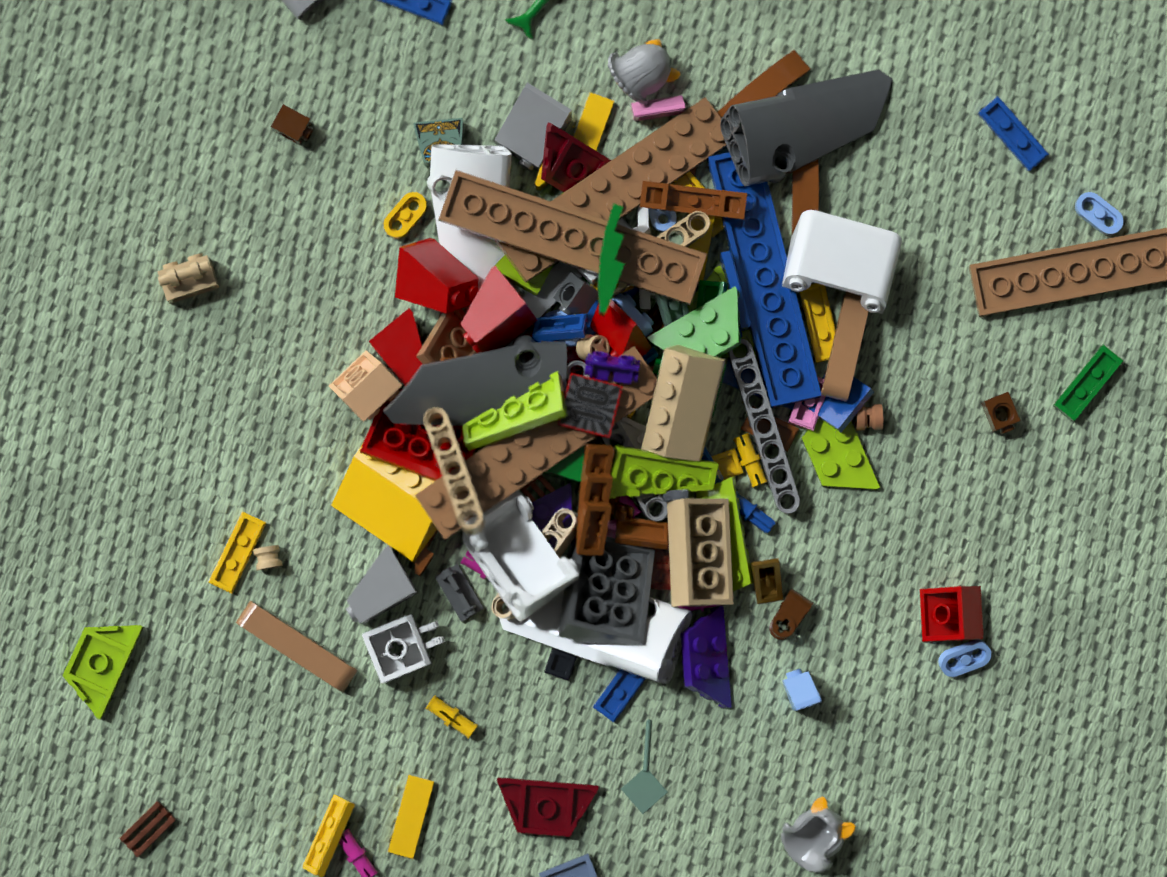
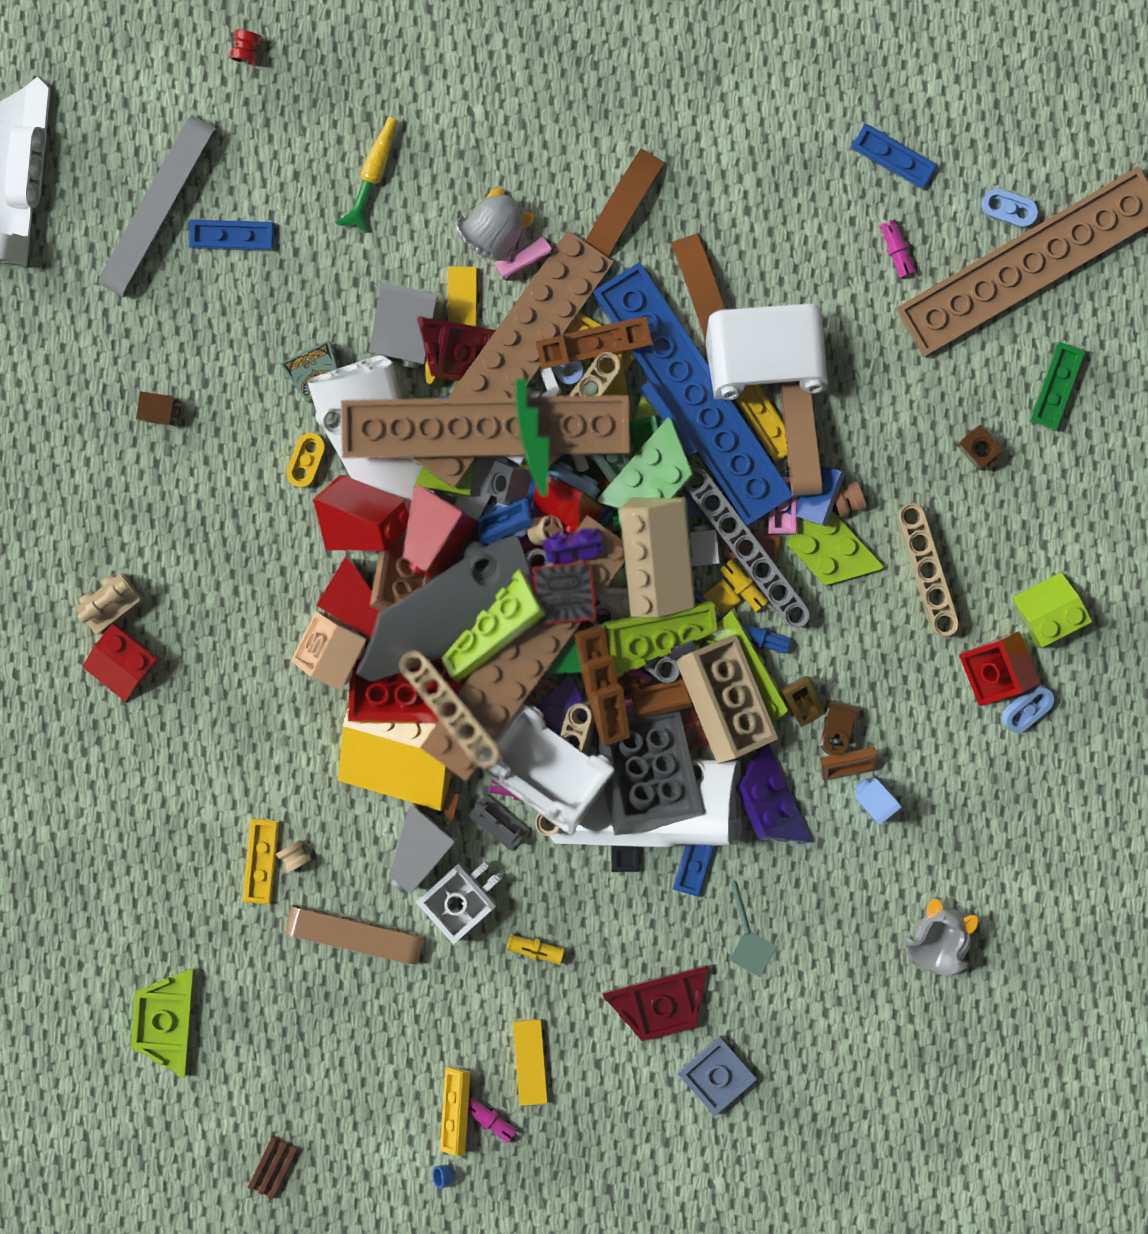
camera: 20 degrees left, 5 degrees up
(178, 333) = (120, 661): none -> red slope
(726, 413) = (704, 546): none -> white brick
(788, 650) = (848, 763): none -> dark orange tile
(801, 124) = (676, 224): dark grey panel -> none
(922, 491) = (937, 580): none -> tan beam
(988, 214) = (897, 248): none -> dark pink pin
(1015, 578) = (1051, 610): none -> lime slope

